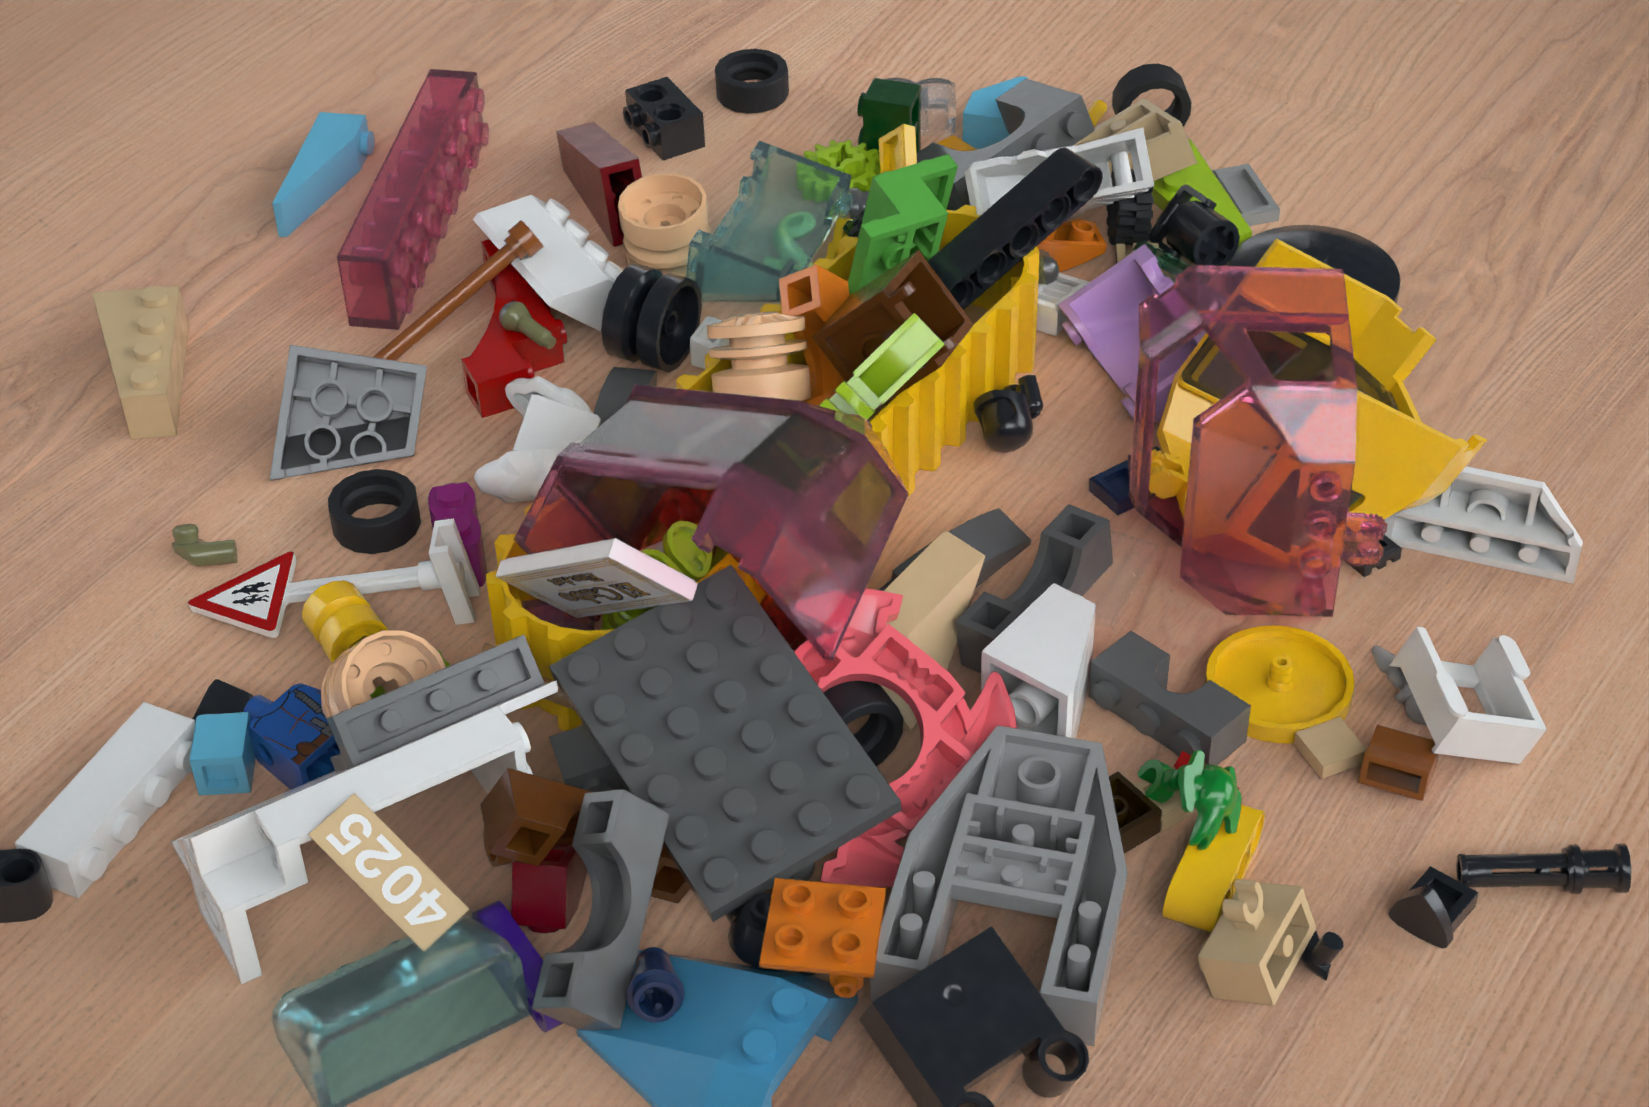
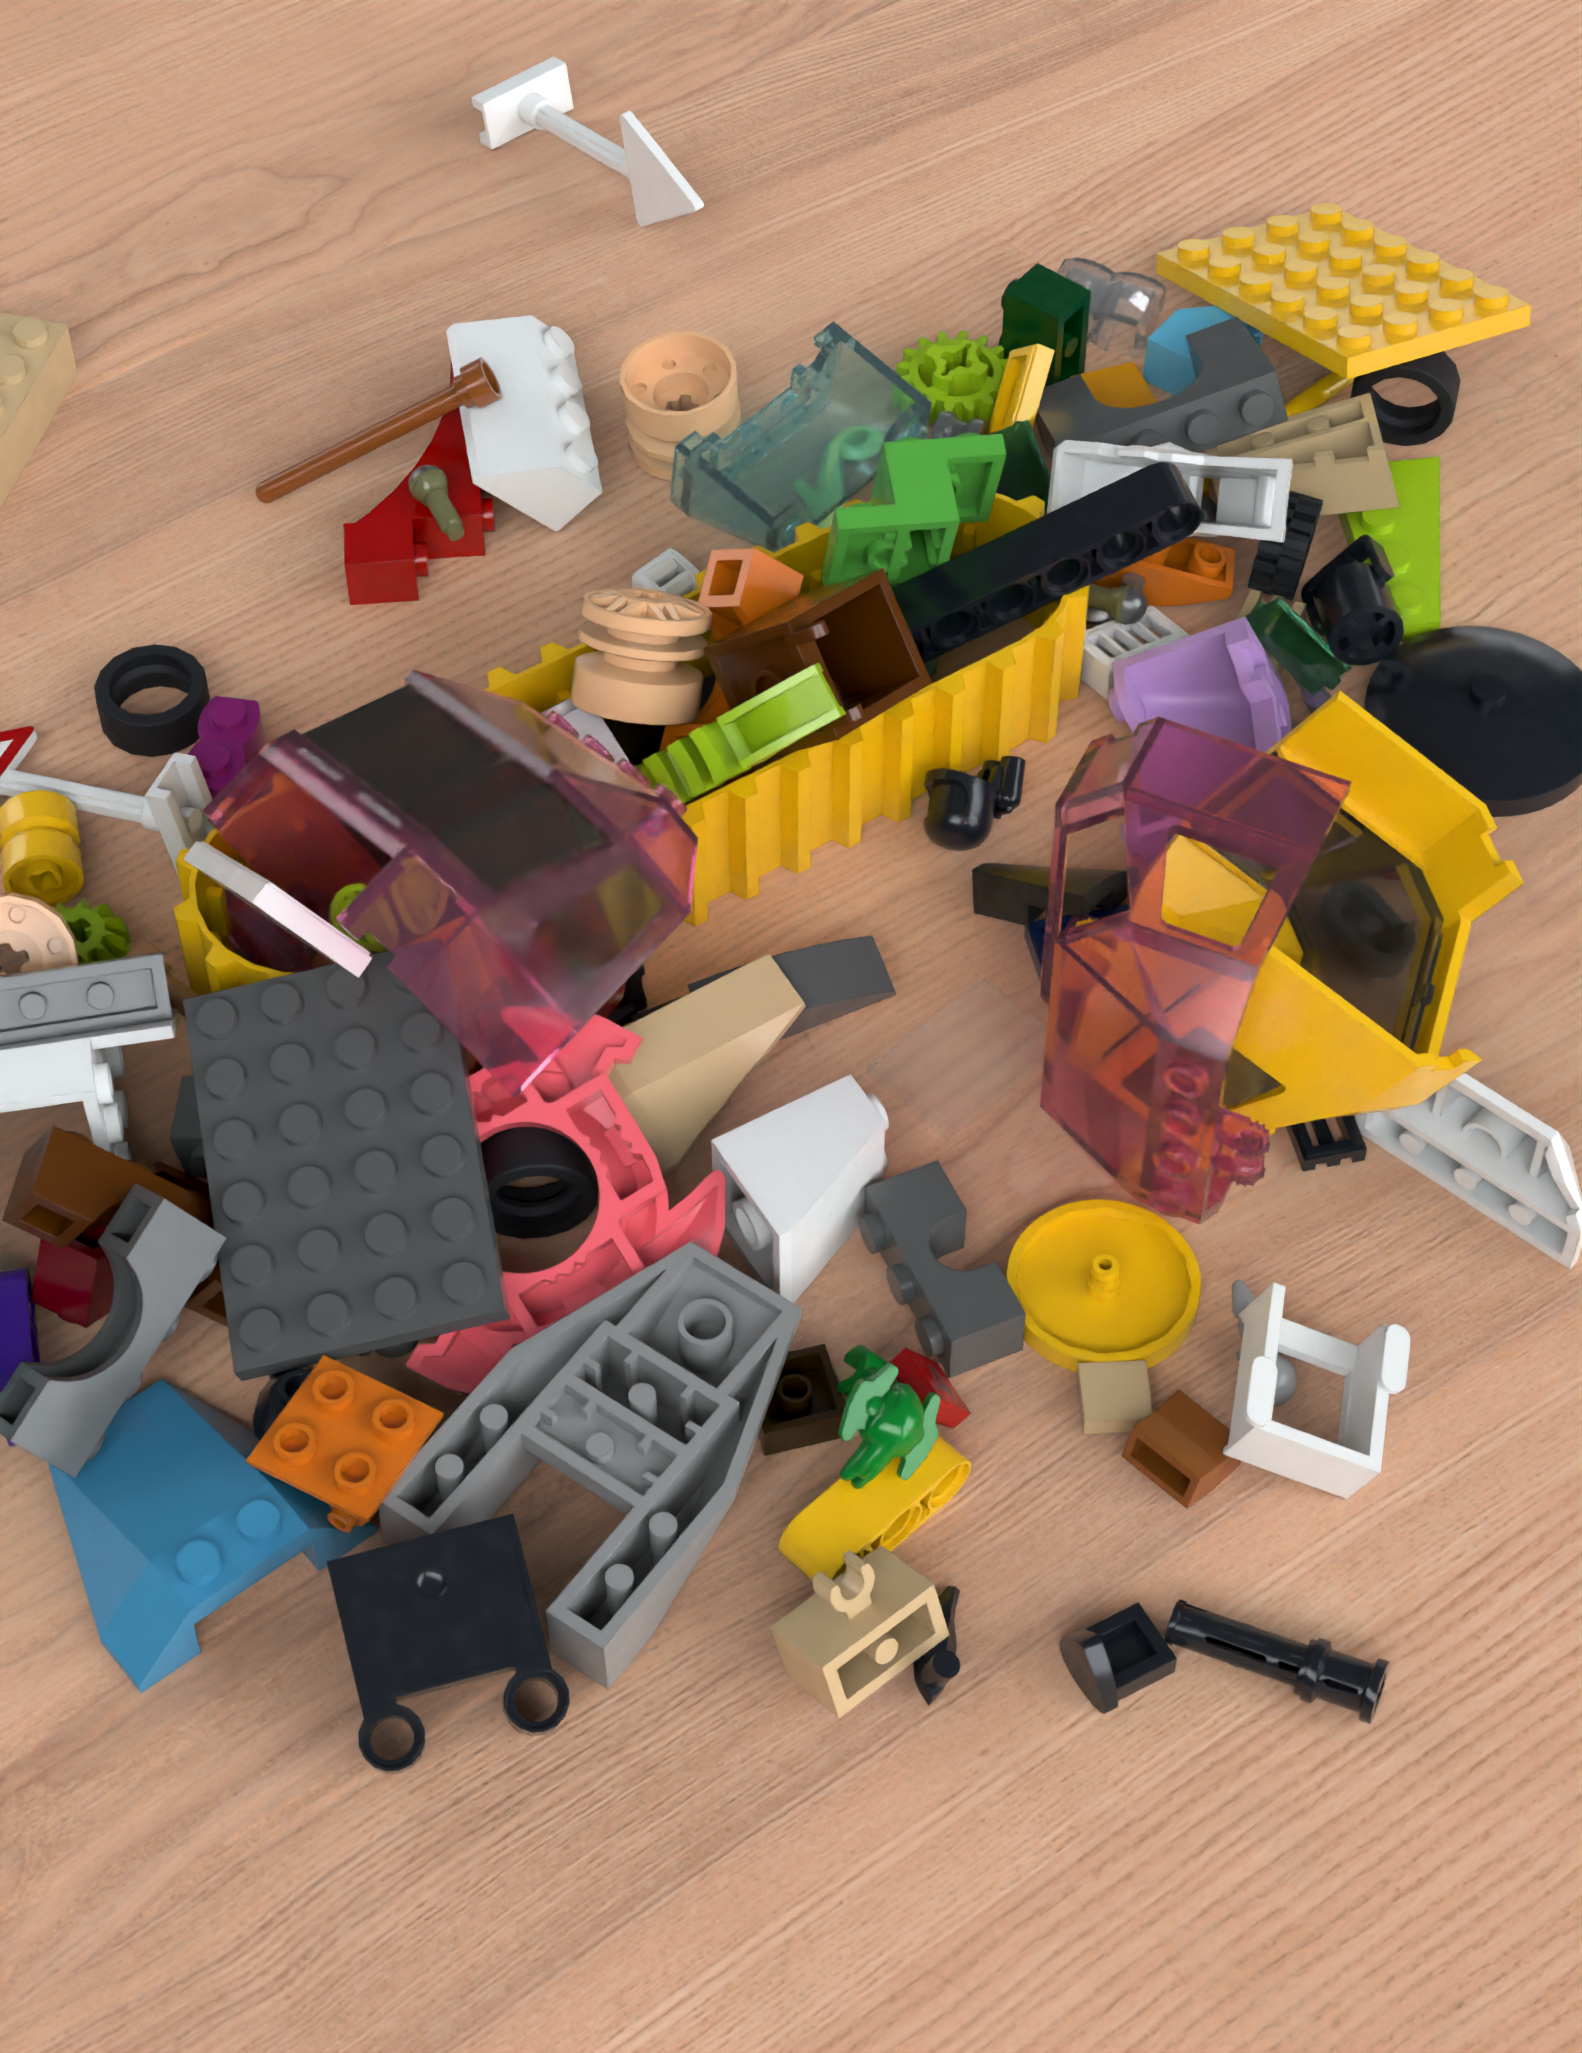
camera: 20 degrees right, 10 degrees up
(324, 164) = (336, 187): medium azure slope -> none
(345, 411) = (181, 554): wedge -> none
(412, 200) = (402, 274): clear pink brick -> none
(549, 424) = (405, 638): white torso -> none
(565, 96) = (539, 101): none -> white piece
(599, 172) = (649, 281): dark red slope -> none
(618, 388) = (519, 628): dark grey slope -> none
(651, 317) = (593, 528): black wheel -> none
(655, 987) = (132, 1441): dark blue cone -> none
(664, 118) = (776, 236): black brick -> none
(751, 65) = (912, 183): black tyre -> none
(1070, 553) = (917, 1038): dark grey arch -> none
(1078, 51) = (1342, 290): none -> yellow plate
(1081, 457) = (1021, 891): none -> pearl dark grey slope
(1248, 194) = (1468, 562): light grey tile -> none

